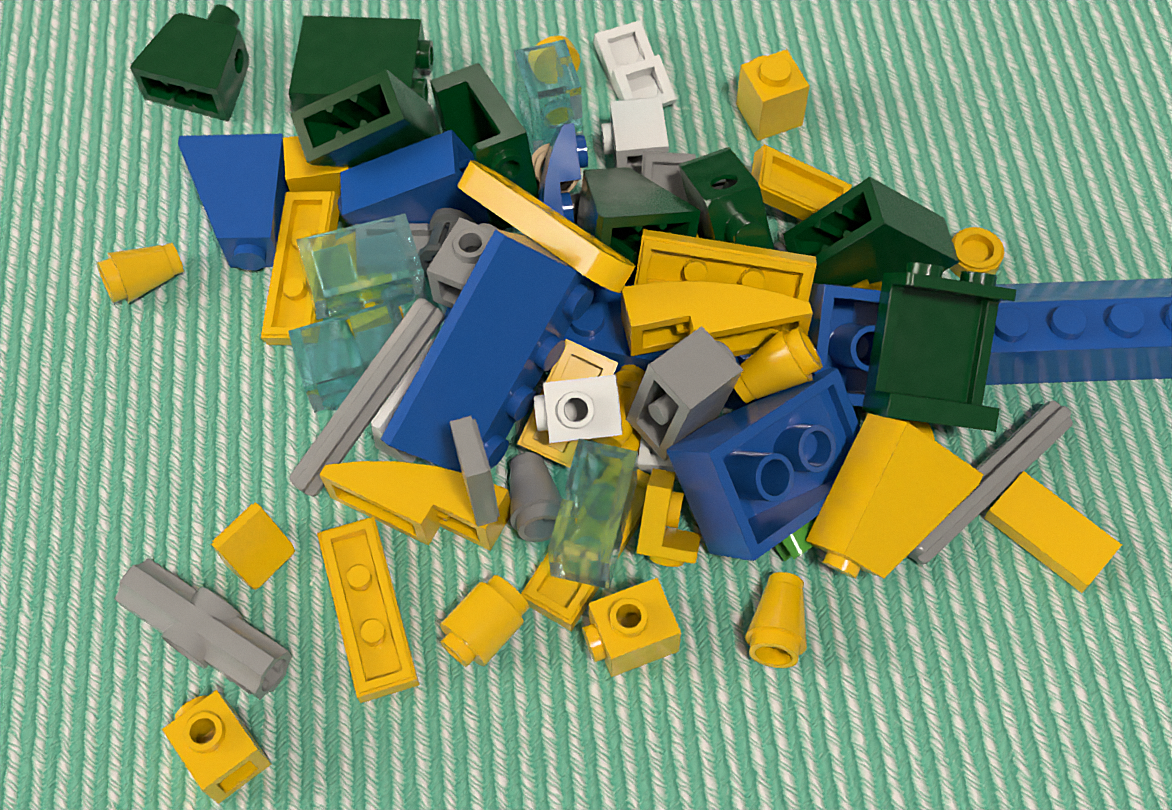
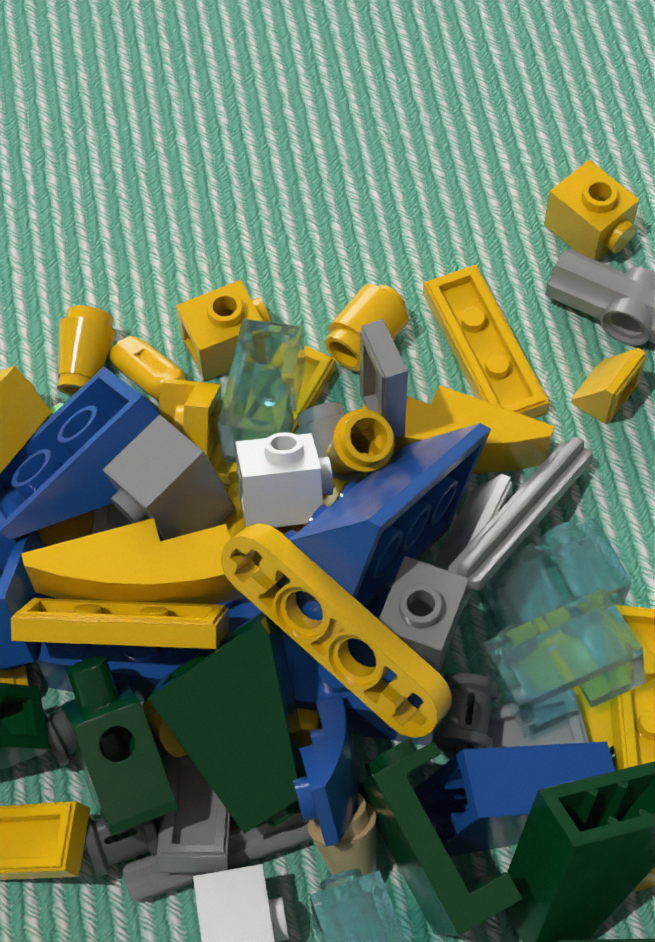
camera: 175 degrees right, 0 degrees up
(508, 442) = (361, 442): none -> yellow cone
(709, 599) = (144, 364): none -> yellow piece
(778, 365) = (59, 521): yellow cone -> none

